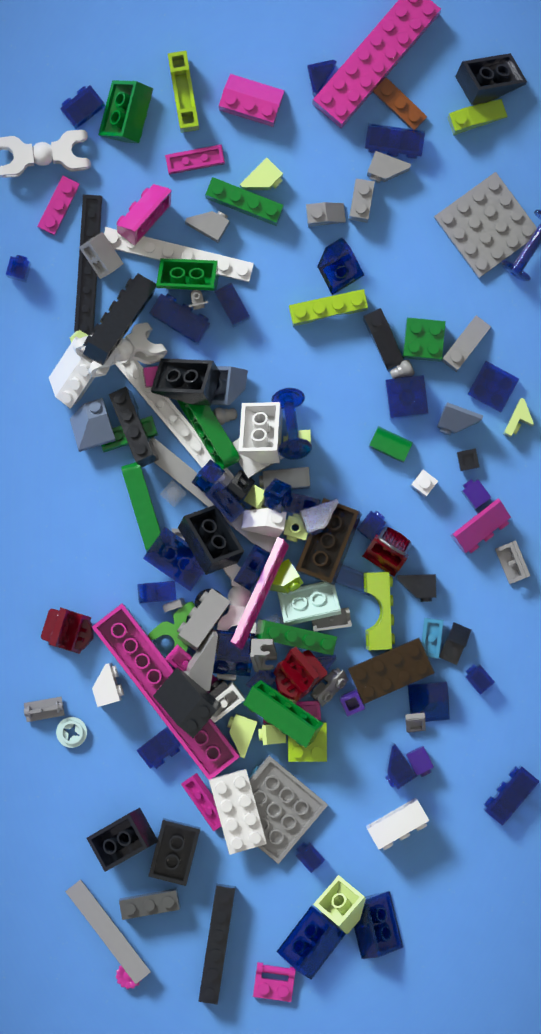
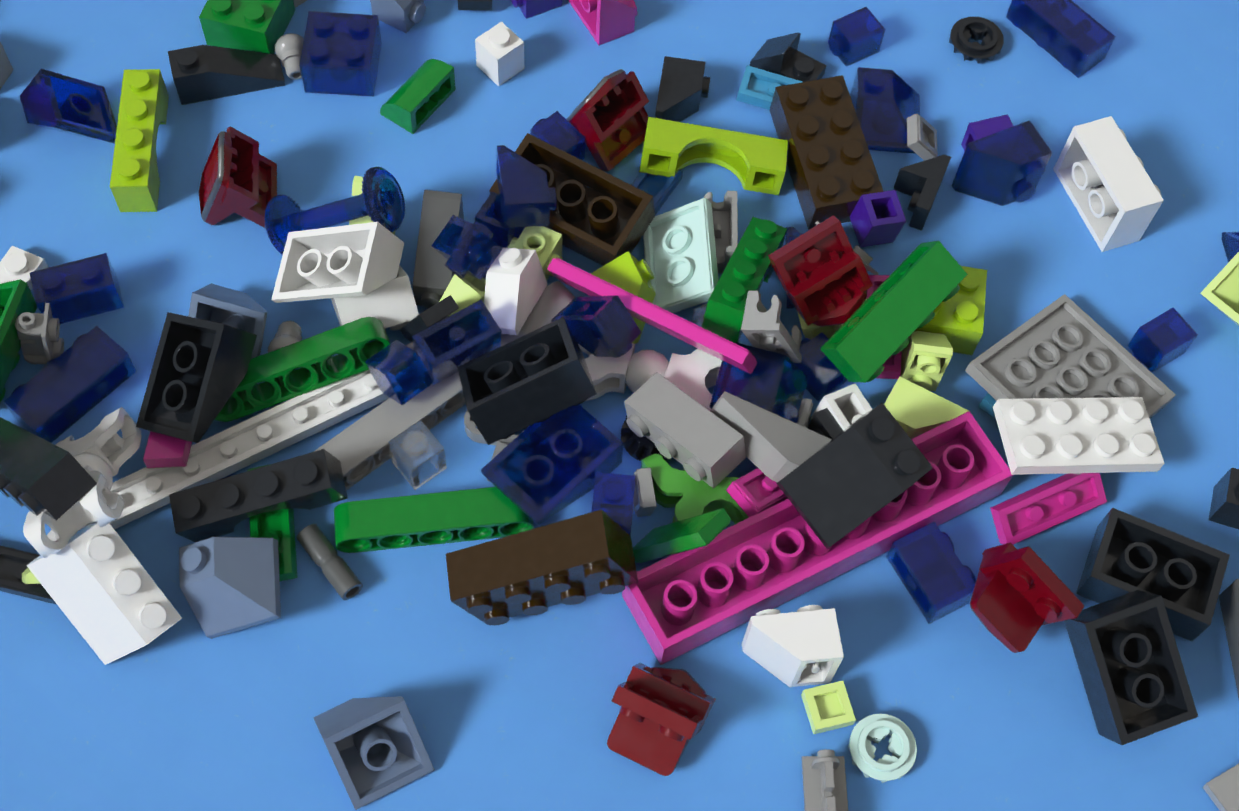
camera: 85 degrees left, 25 degrees down
(30, 505) = (373, 746): none -> sand blue slope
(85, 705) = (828, 707): none -> yellowish green plate
(113, 466) = (332, 565): none -> dark grey piece
(116, 565) = (542, 568): none -> dark brown brick
(145, 785) = (1019, 595): none -> dark red piece
(146, 625) = (681, 535): none -> green tile
(308, 367) = (236, 179): none -> dark red piece
(386, 727) = (922, 183): none -> black slope
(485, 747) = (978, 29): none -> black gear

